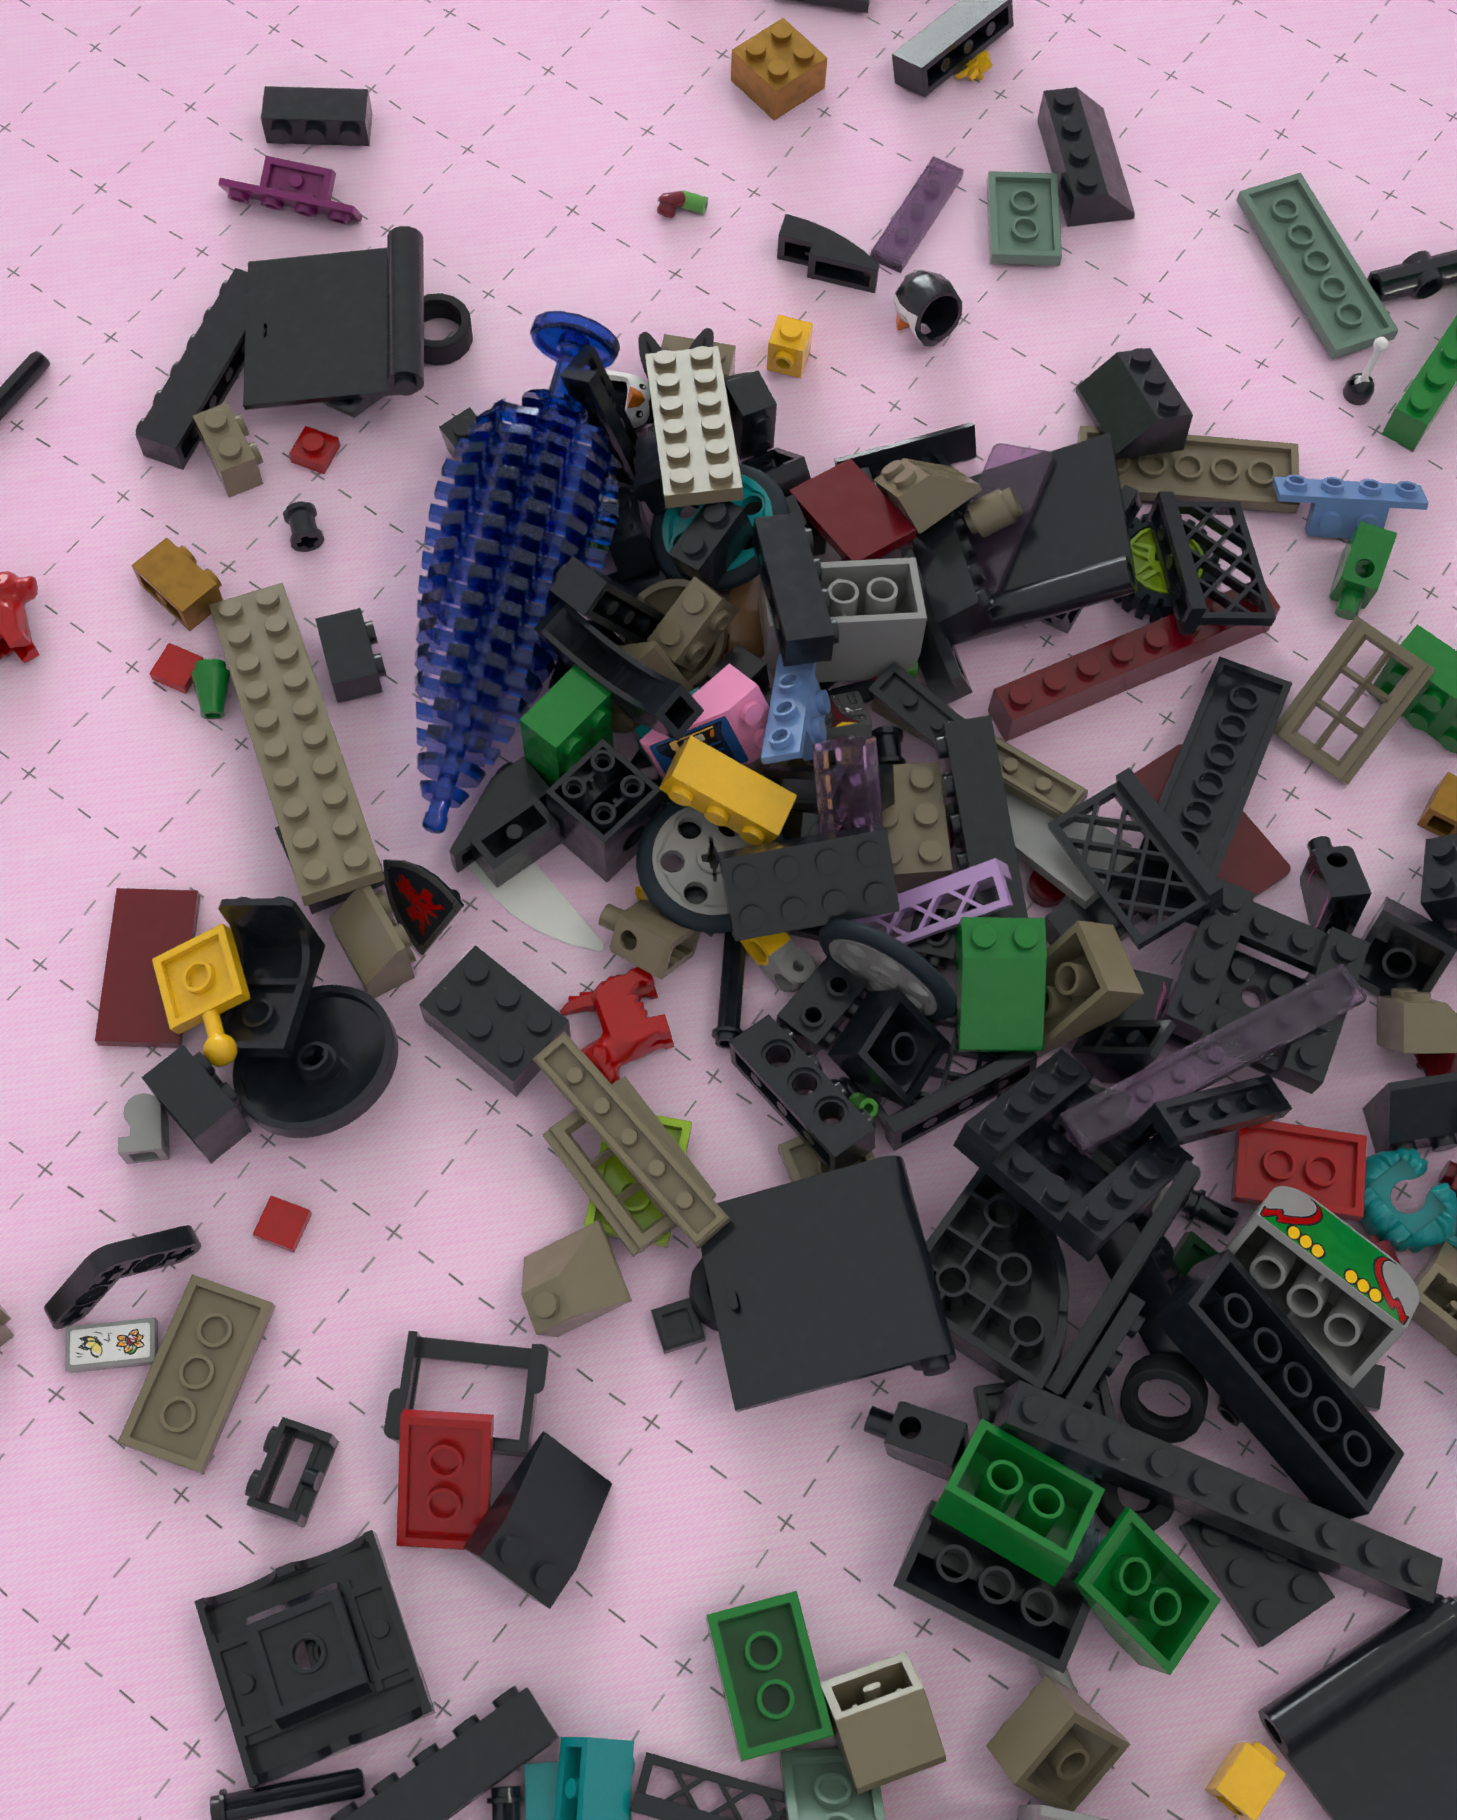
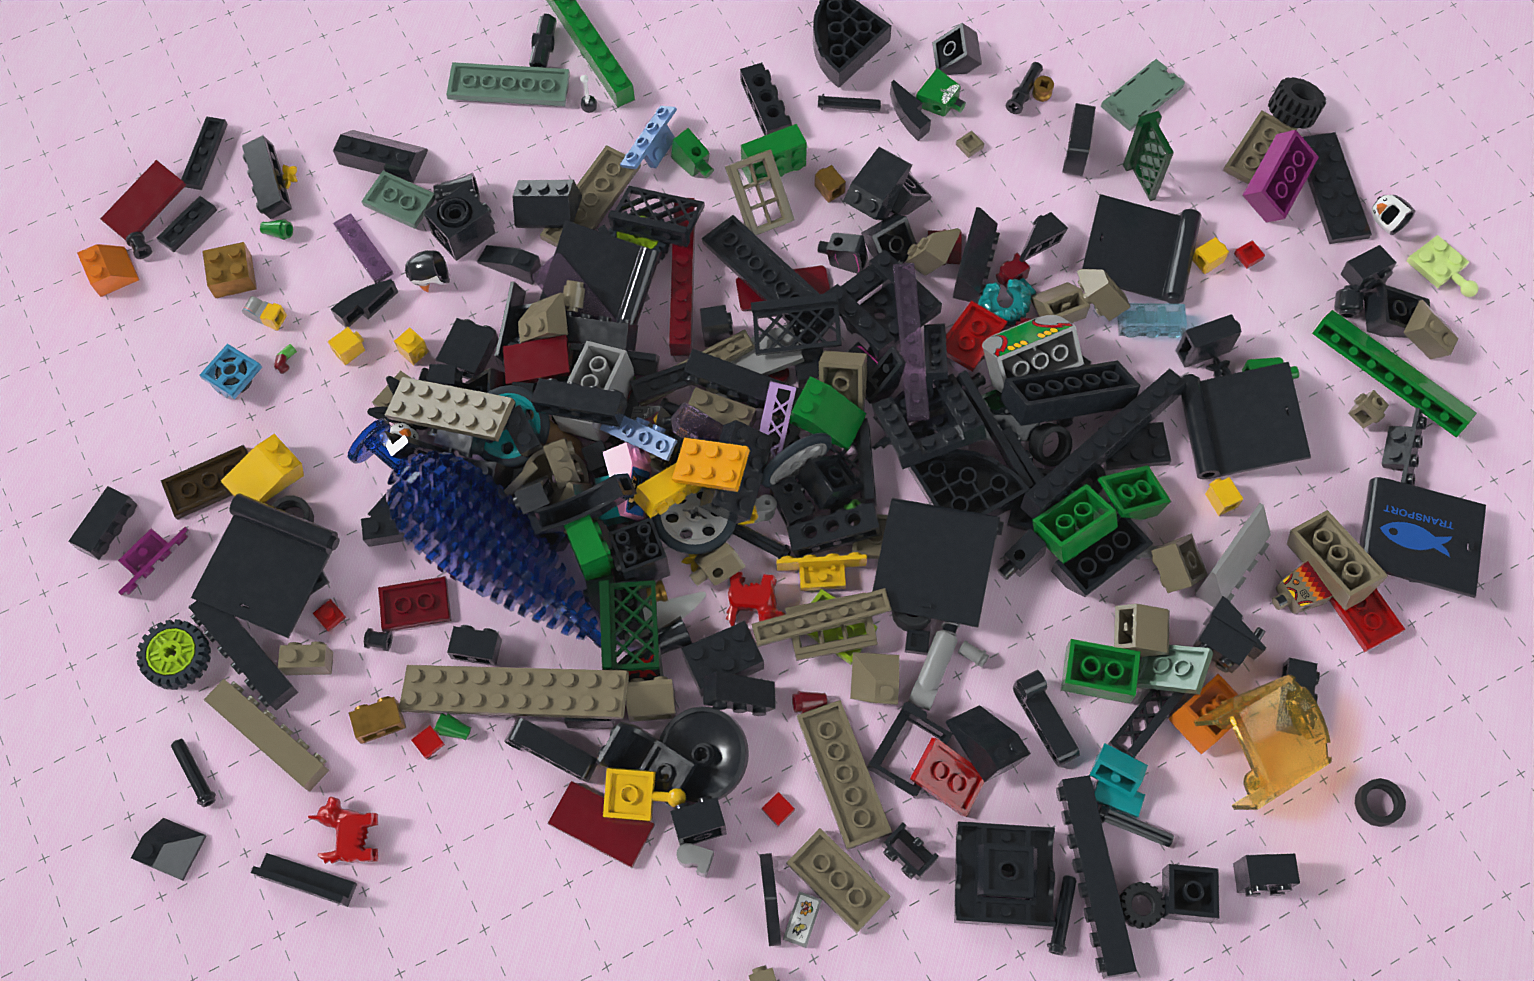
camera: 60 degrees left, 0 degrees up
(95, 459) = (267, 735): none -> dark tan brick
(163, 289) = (190, 655): none -> wheel
(228, 831) = (551, 749): none -> black beam
(380, 548) = (414, 604): none -> dark red tile
(380, 1301) = (844, 775): none -> dark tan plate
(436, 1068) = (738, 693): none -> black brick
(445, 210) = (201, 484): none -> dark brown tile
(445, 820) = (608, 625): none -> dark green fence
(485, 260) = (264, 471): none -> yellow slope
(485, 1190) = (807, 701): none -> dark red cone
(494, 924) = (671, 636): none -> black plant
(561, 871) = (660, 592): none -> pearl gold wheel
(595, 1374) = (934, 666): none -> light grey piece
(619, 147) = (232, 370): none -> dark azure piece
(633, 1613) = (1044, 717): none -> black beam
(644, 583) = (523, 476): none -> dark tan tile
(699, 1432) = (974, 654): none -> light grey pin
(721, 1110) = (822, 572): none -> yellow bracket
(738, 142) = (264, 312): none -> leg
(744, 266) = (347, 345): none -> yellow brick
(785, 827) = (711, 464): none -> light orange plate
(828, 419) = (468, 347): none -> black brick
(881, 95) = (279, 228): none -> green cone
(1010, 407) = (511, 261): none -> black slope
(1030, 307) = (460, 222): none -> black brick
(1069, 742) = (715, 324): none -> black brick
(1087, 283) = (447, 187): none -> black plant

